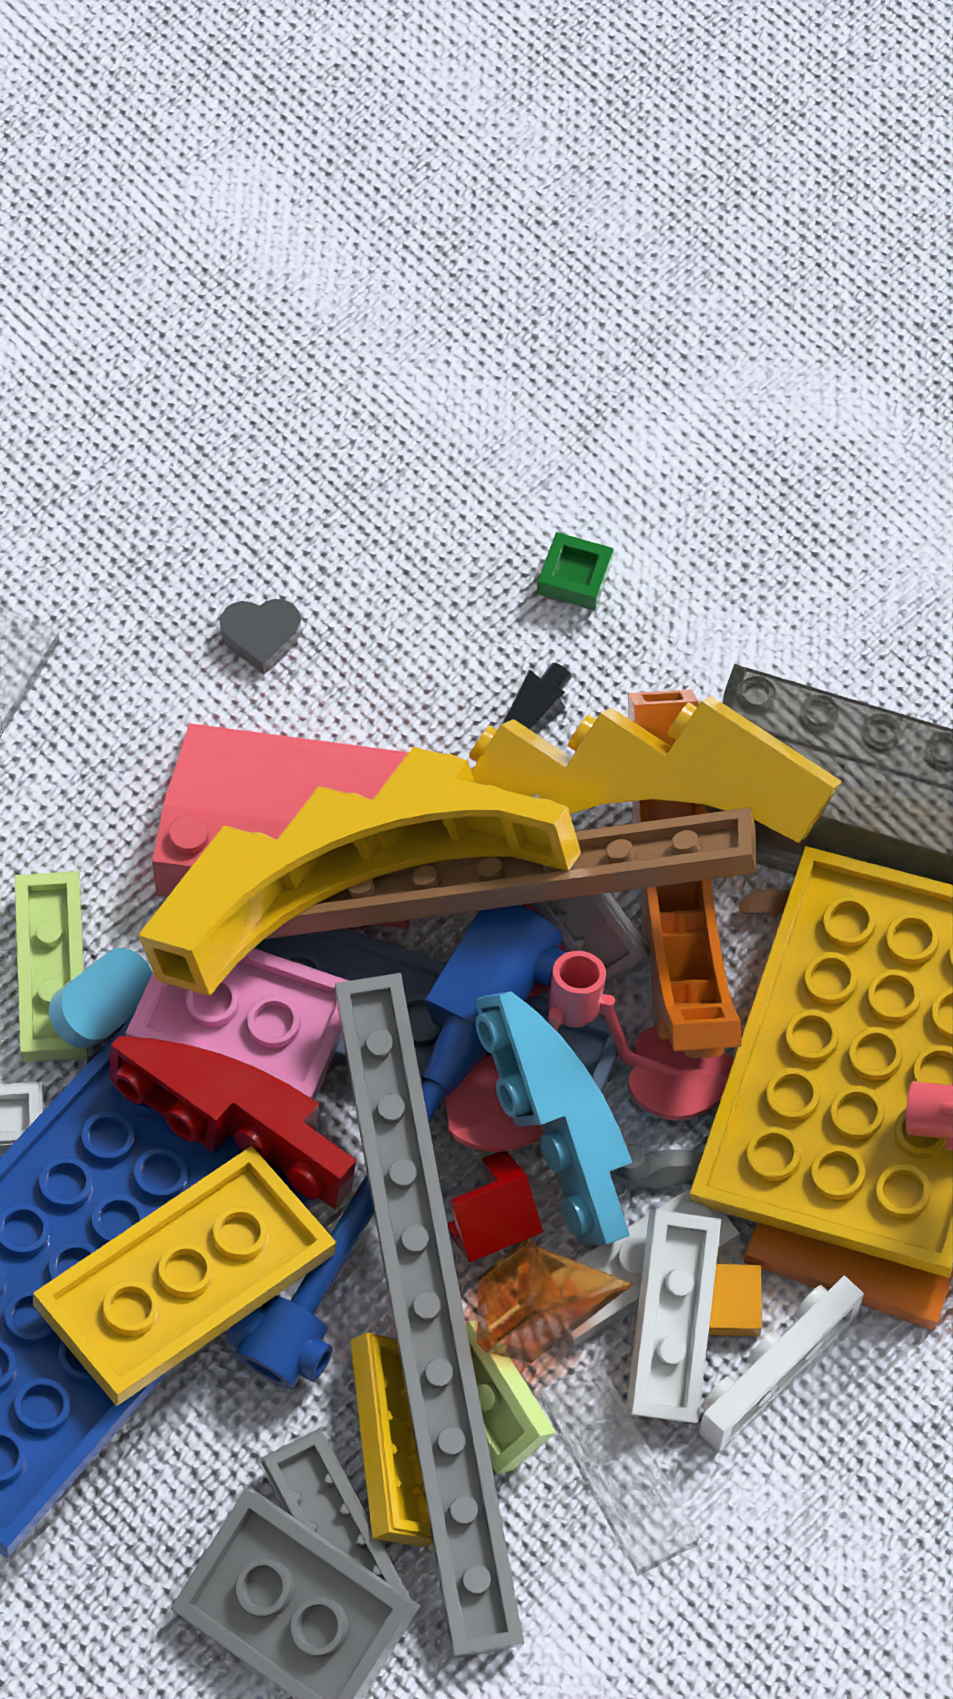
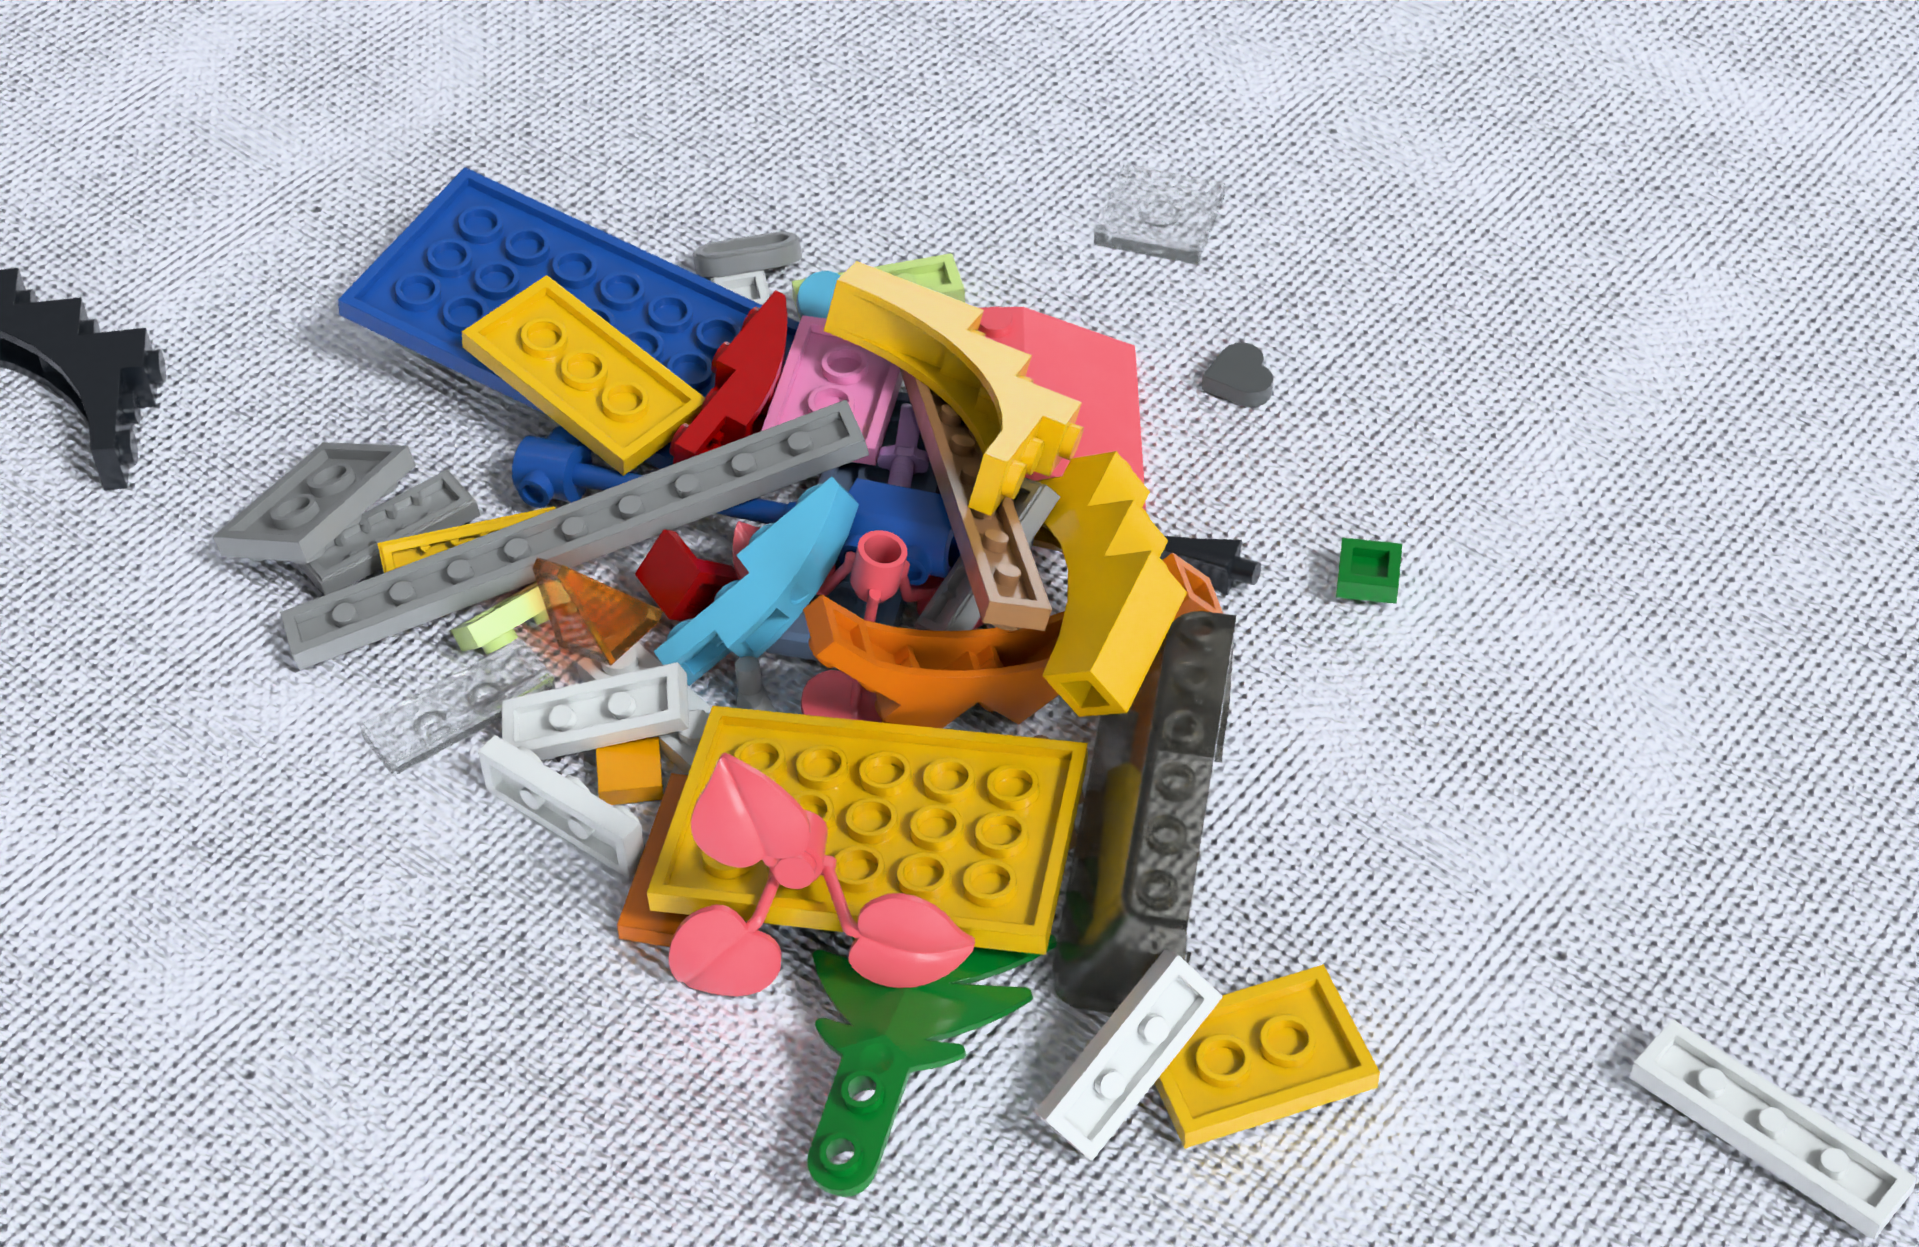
camera: 85 degrees right, 15 degrees down
(357, 964) = (904, 457): none -> lavender piece

